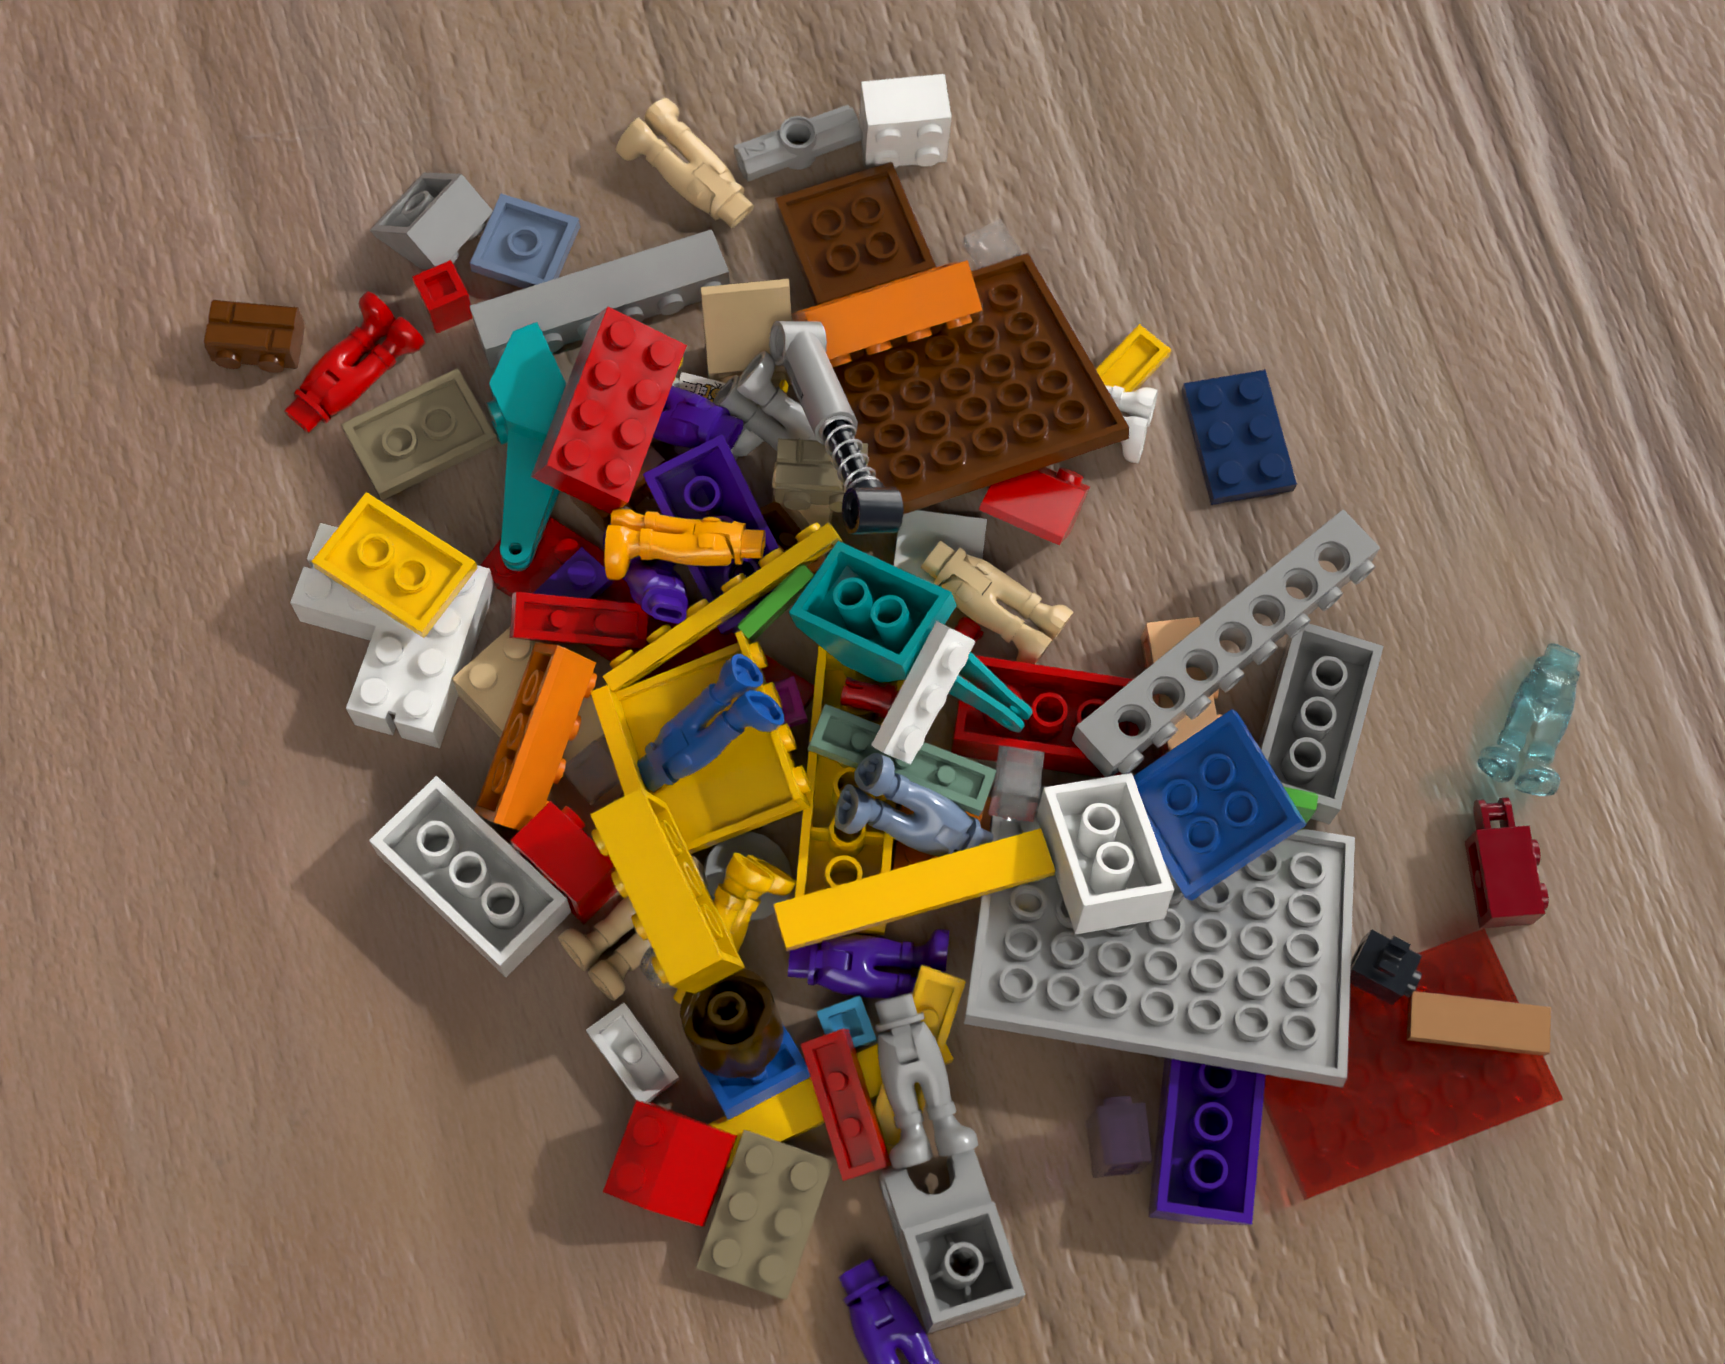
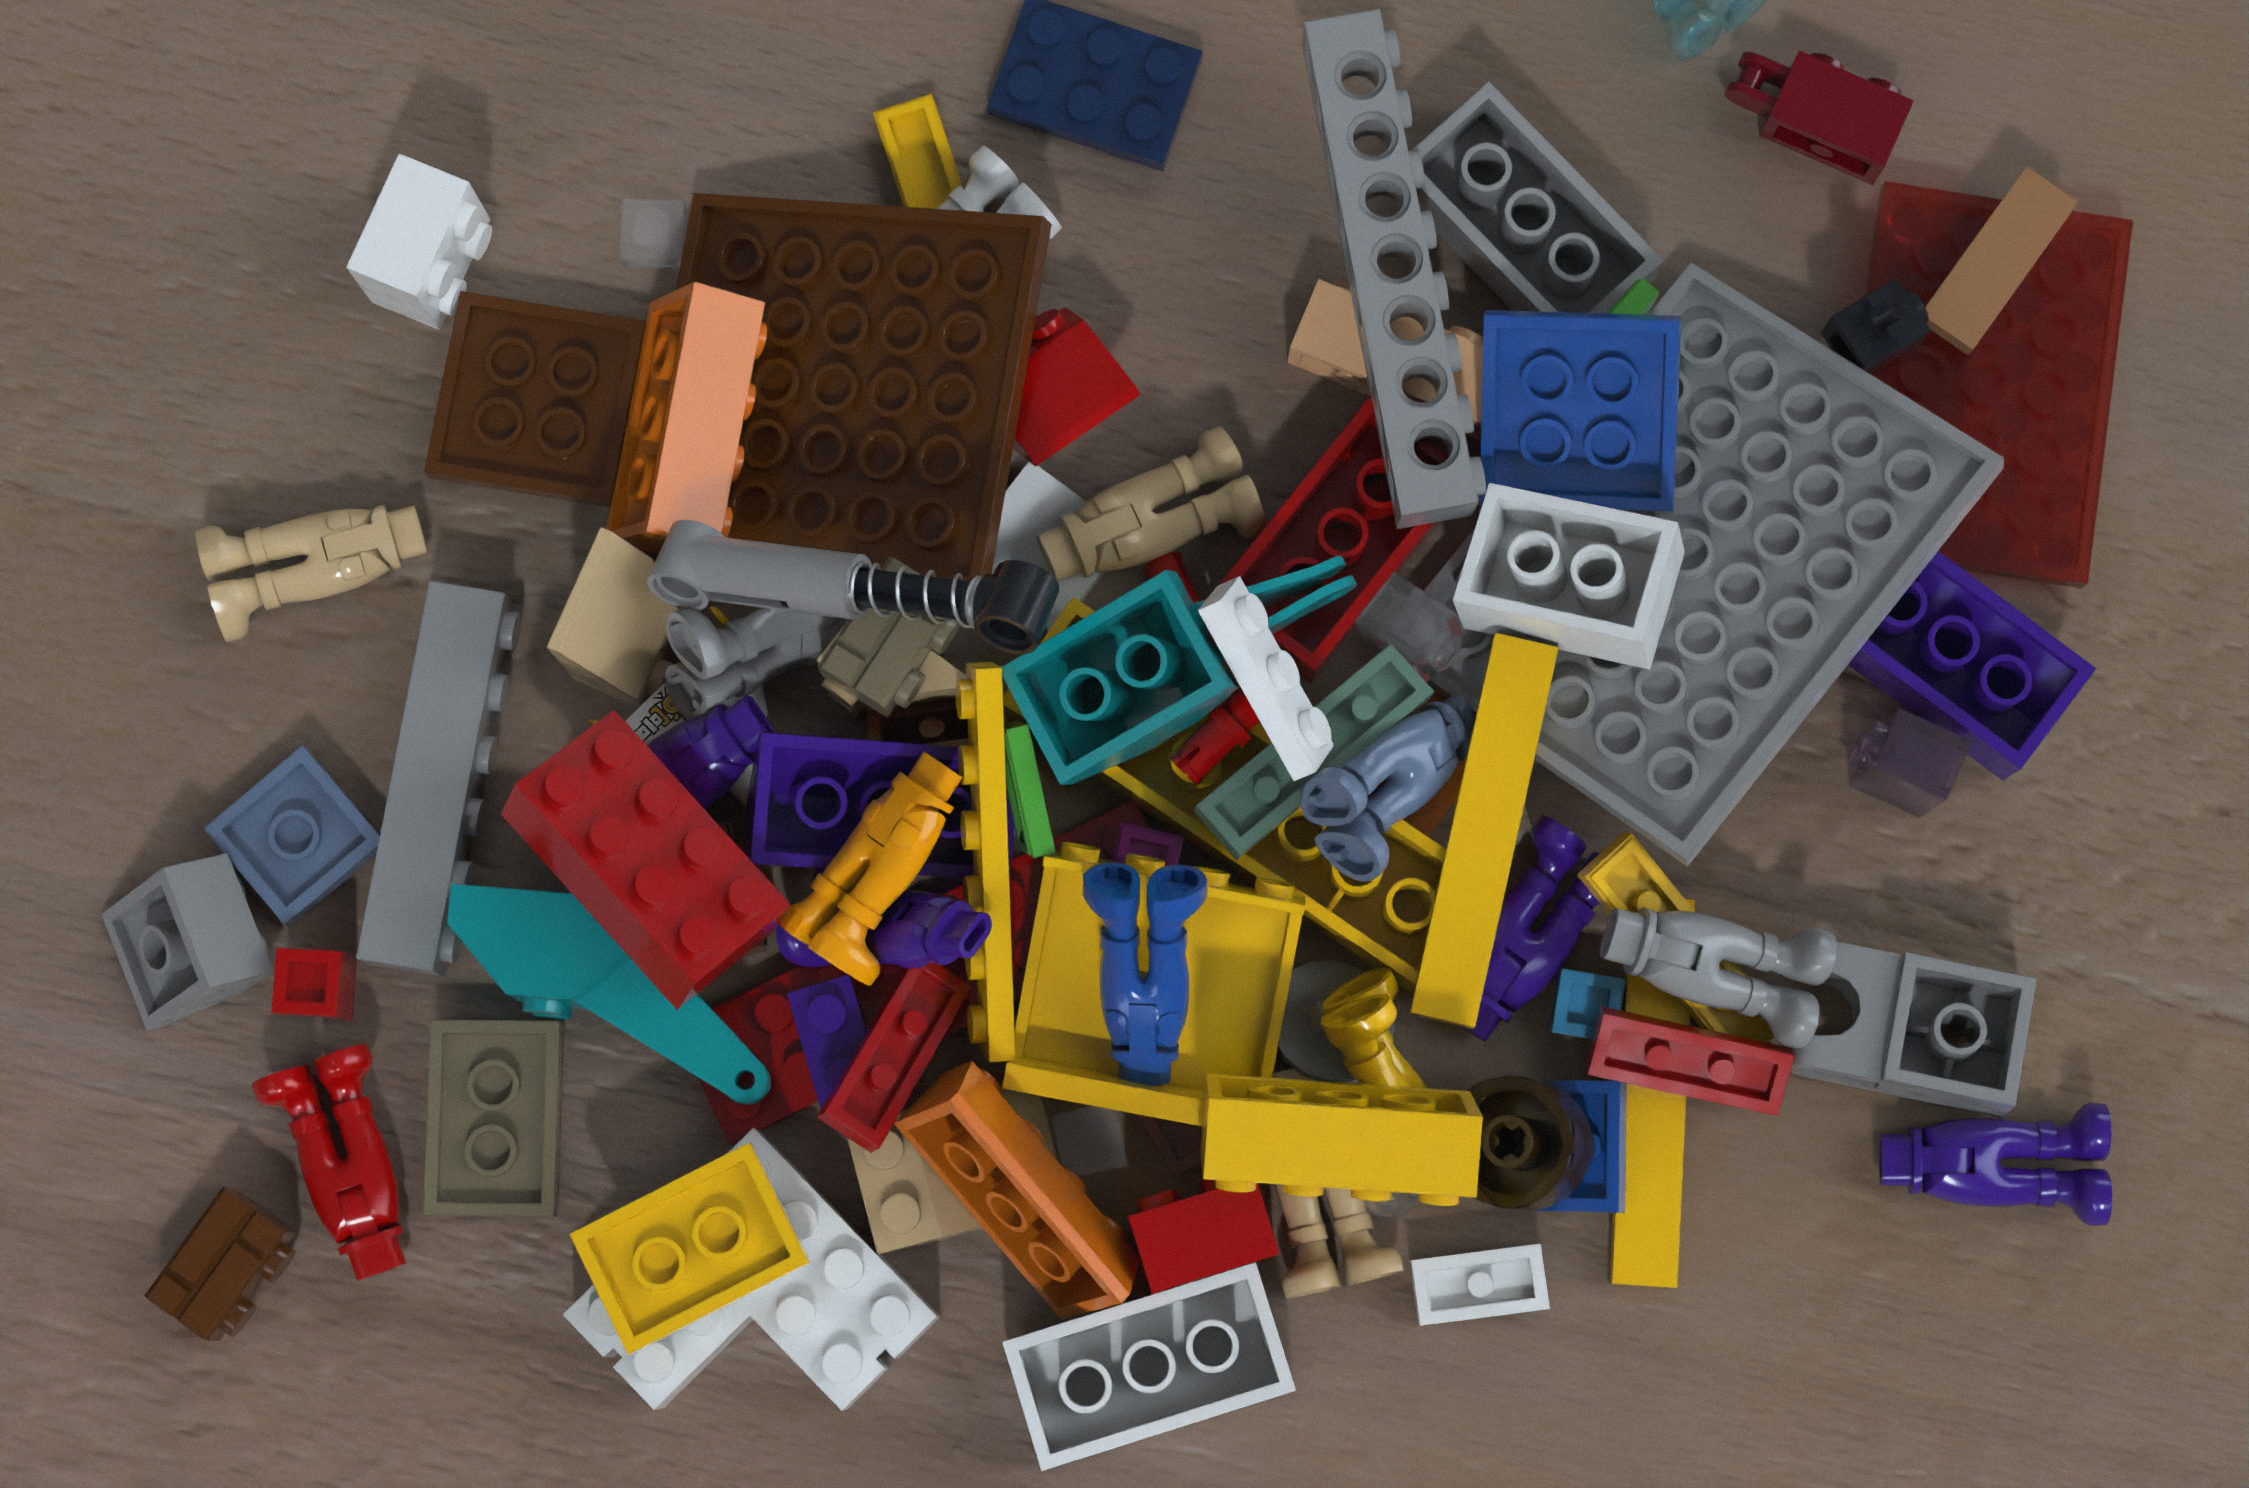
camera: 55 degrees left, 10 degrees up
(669, 1163) = (1645, 1311): red slope -> none
(764, 1214) = (1761, 1231): dark tan plate -> none
(776, 151) = (361, 358): light grey piece -> none

